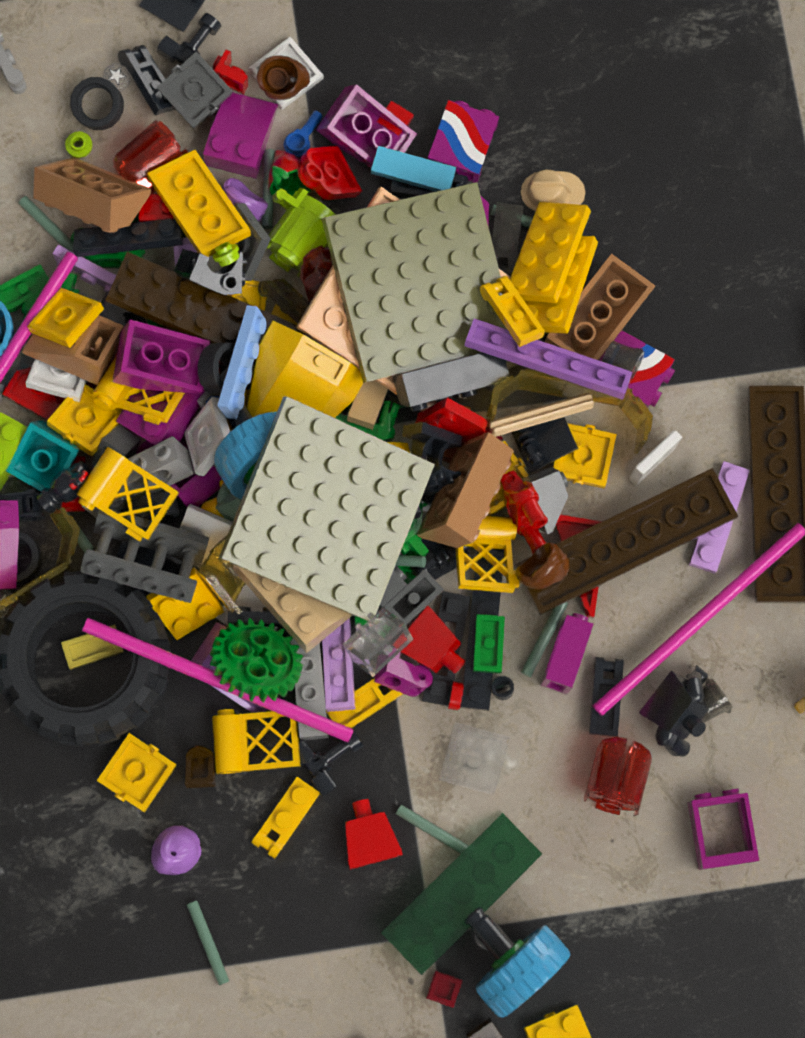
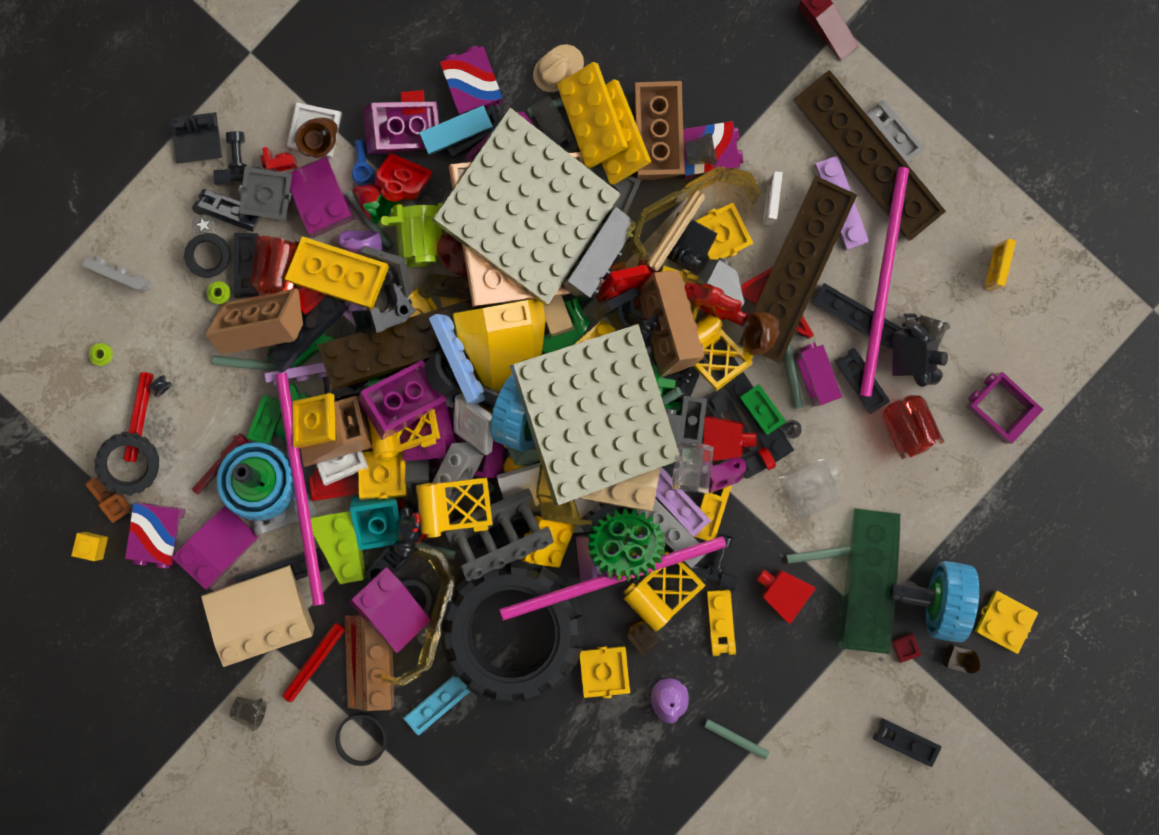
camera: 30 degrees left, 10 degrees up
(88, 649) = (504, 628): light yellow tile -> none
(127, 130) = (243, 261): none -> black plate
(226, 254) = (385, 293): lime plate -> none
(512, 311) = (605, 177): yellow plate -> none
(549, 359) = (654, 191): medium lavender plate -> none
(647, 624) = (852, 313): none -> black plate

